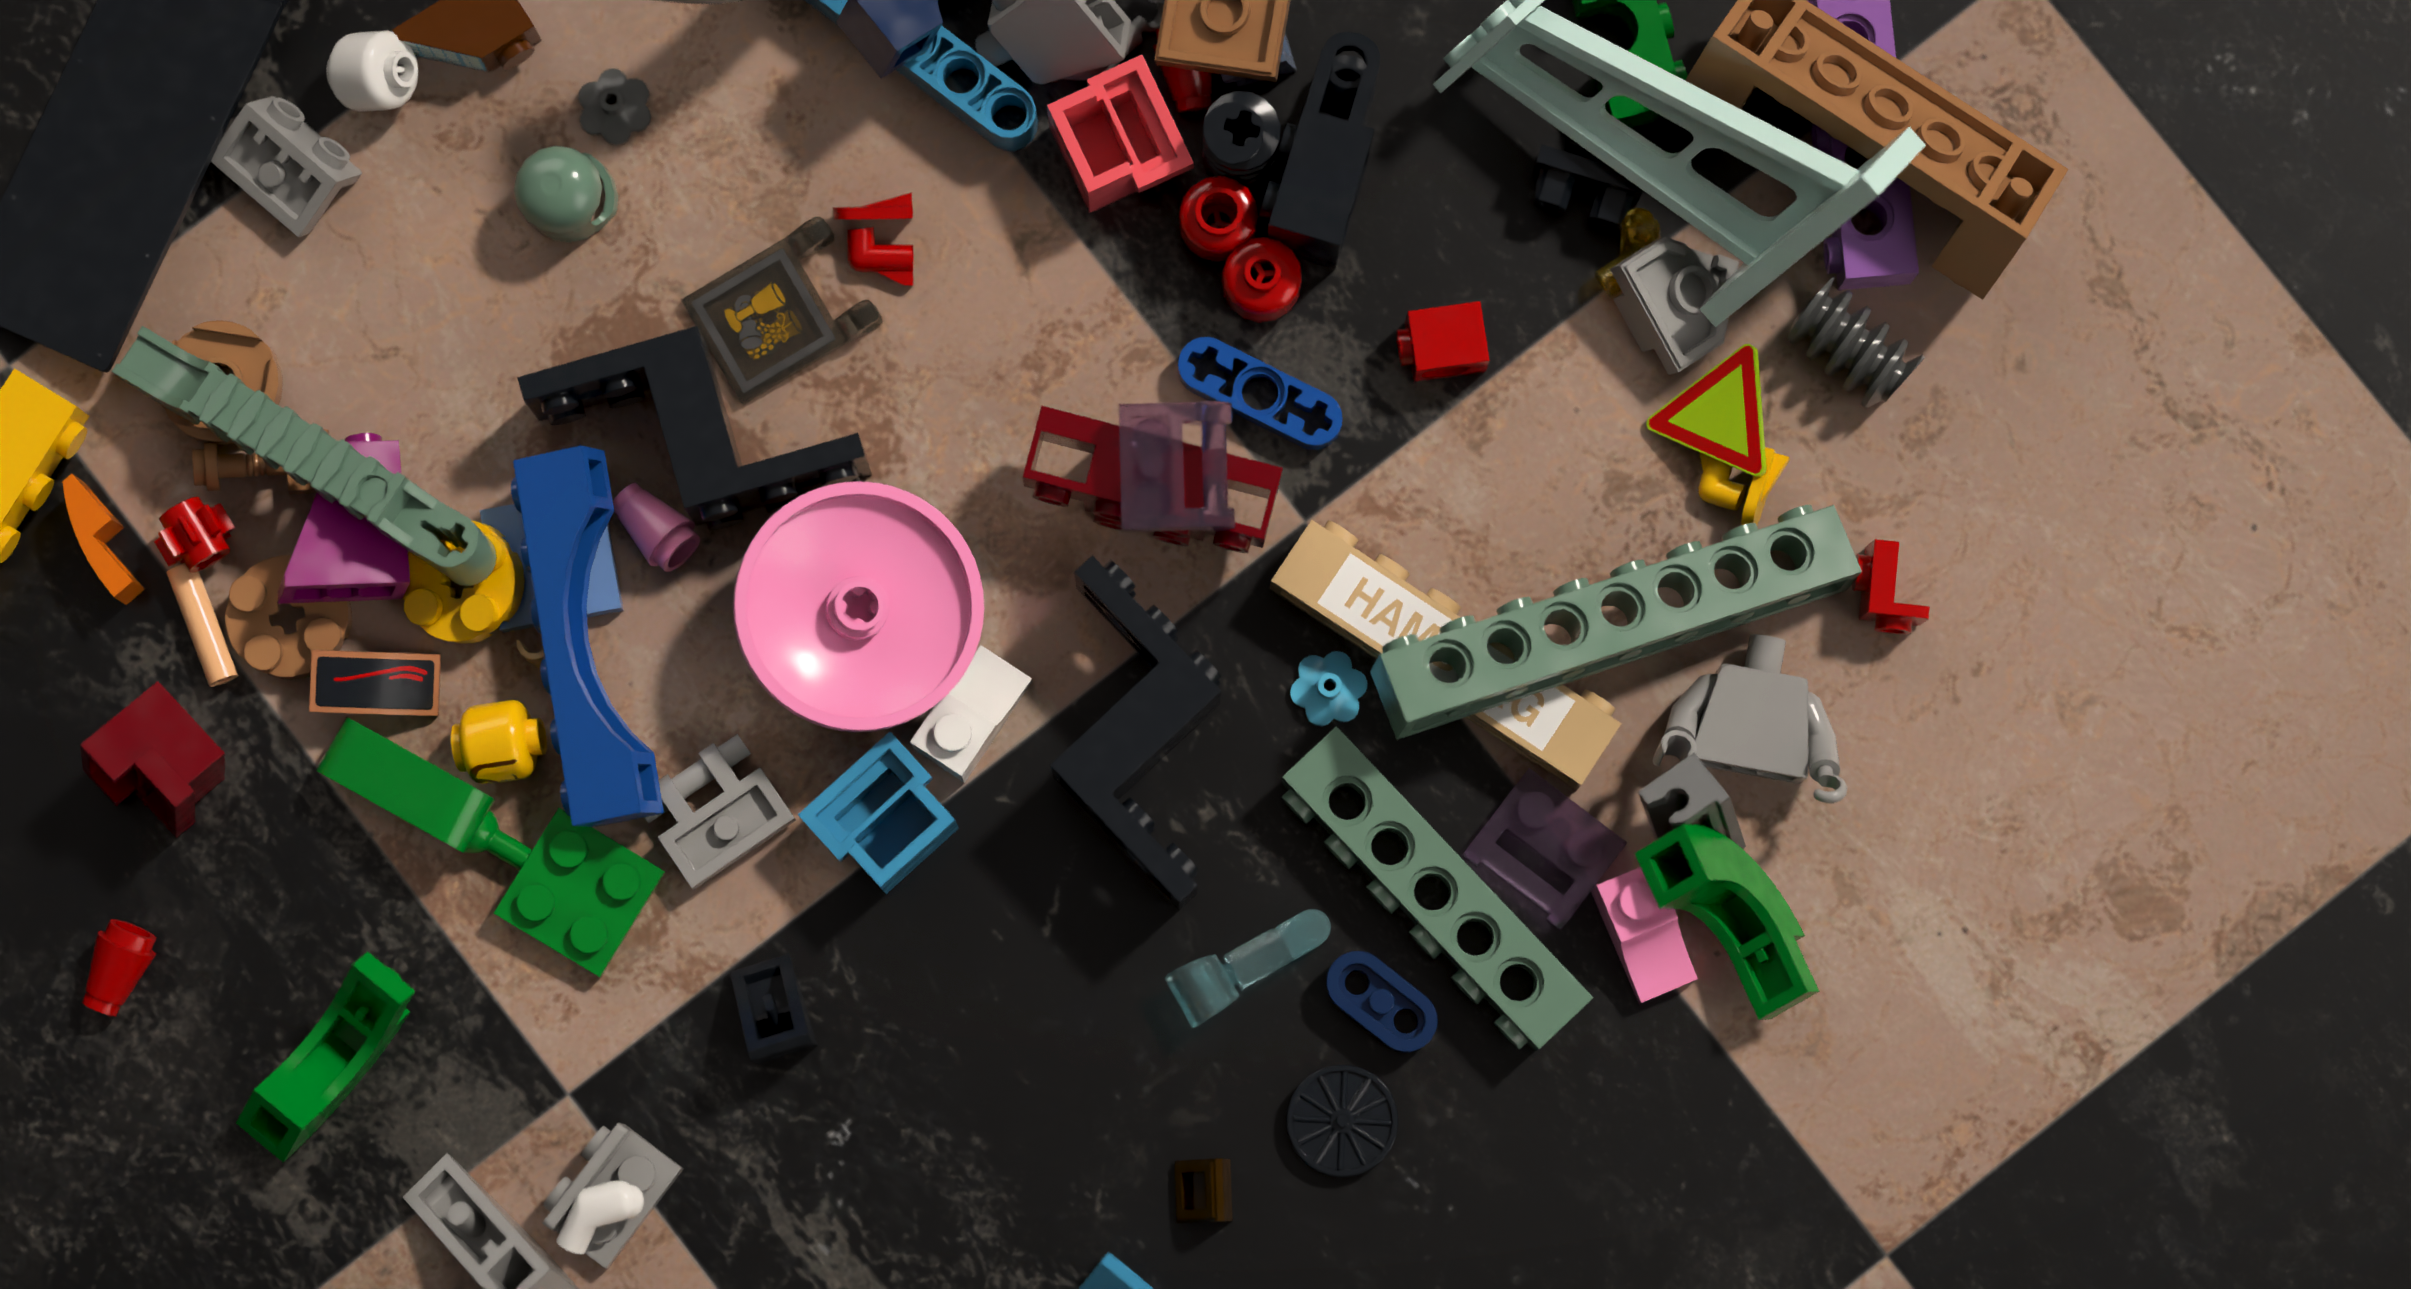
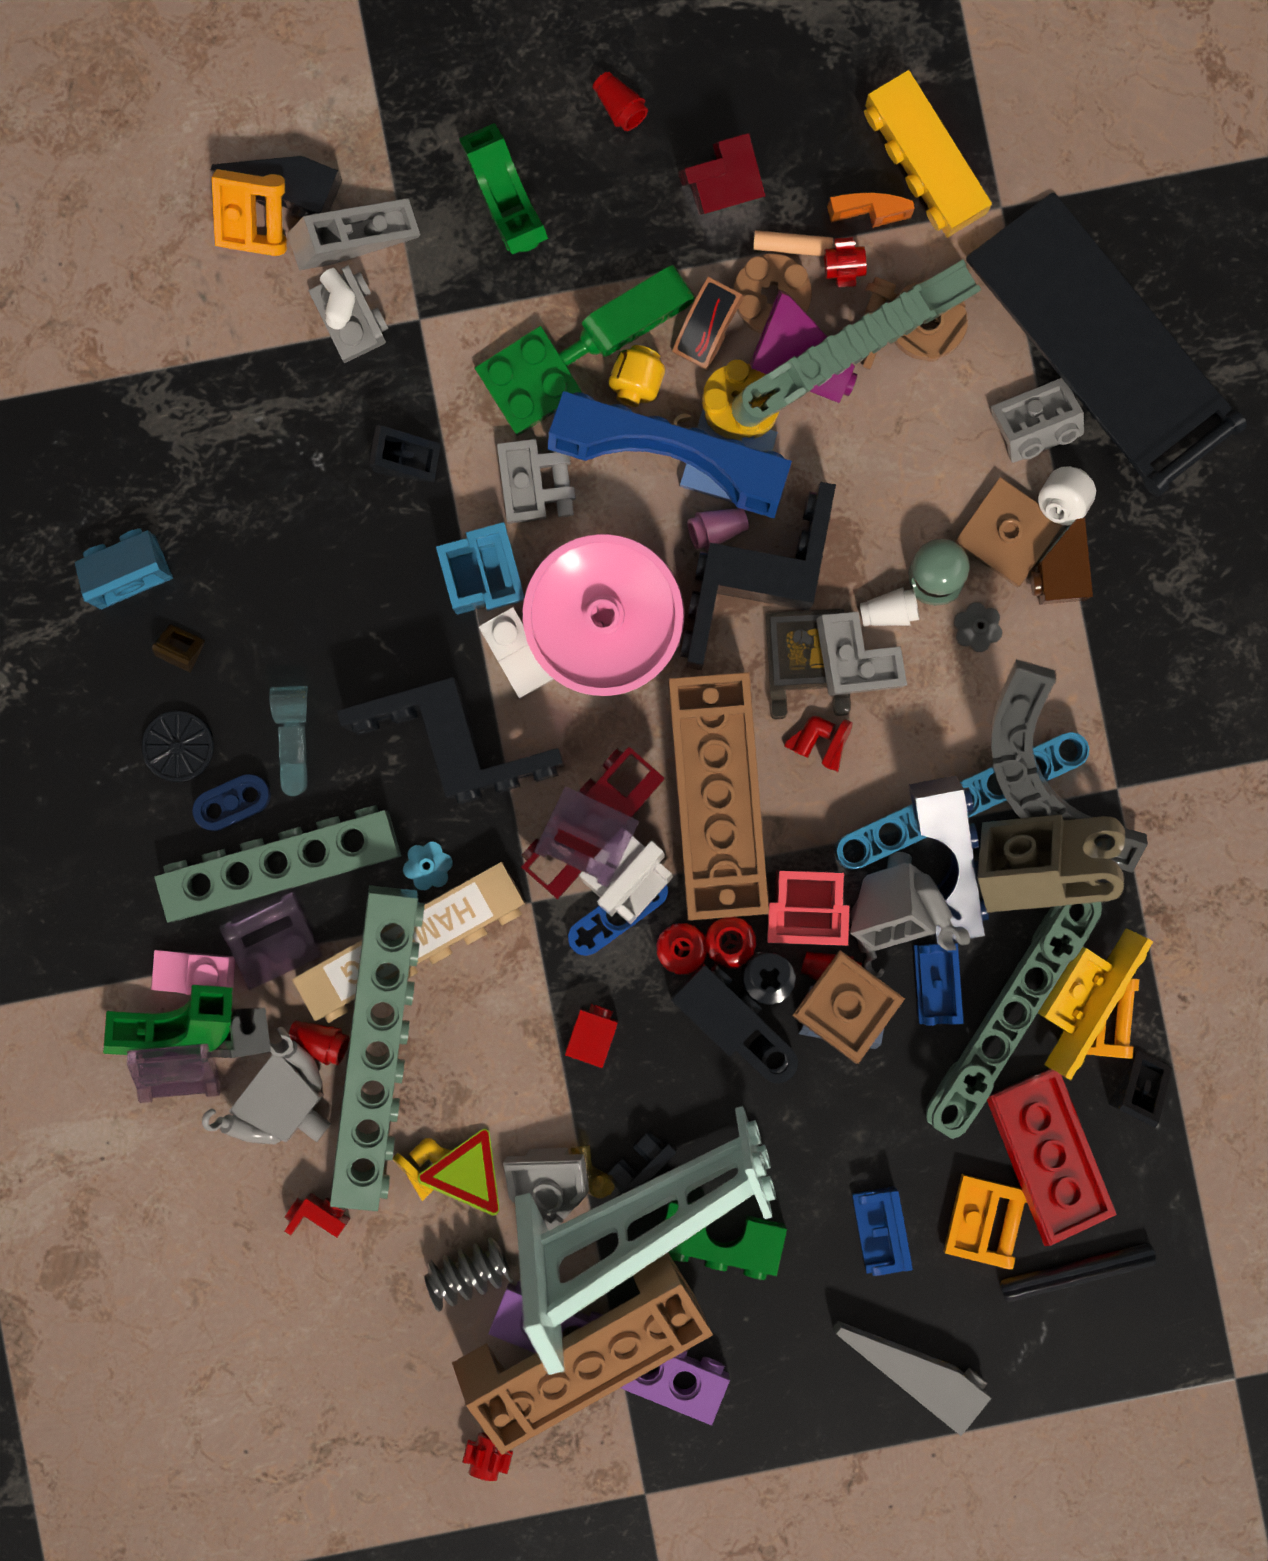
camera: 120 degrees right, 5 degrees up
(463, 129) = (1008, 532): none -> medium nougat plate
(649, 232) = (891, 609): none -> white cone
(756, 249) = (849, 665): none -> light grey plate
(1028, 327) = (718, 796): none -> medium nougat plate
(1206, 376) = (635, 881): none -> white plate
(1645, 707) = (320, 1041): none -> red cone
(1794, 884) = (173, 1072): none -> plate
(2085, 194) = (486, 1459): none -> red gear

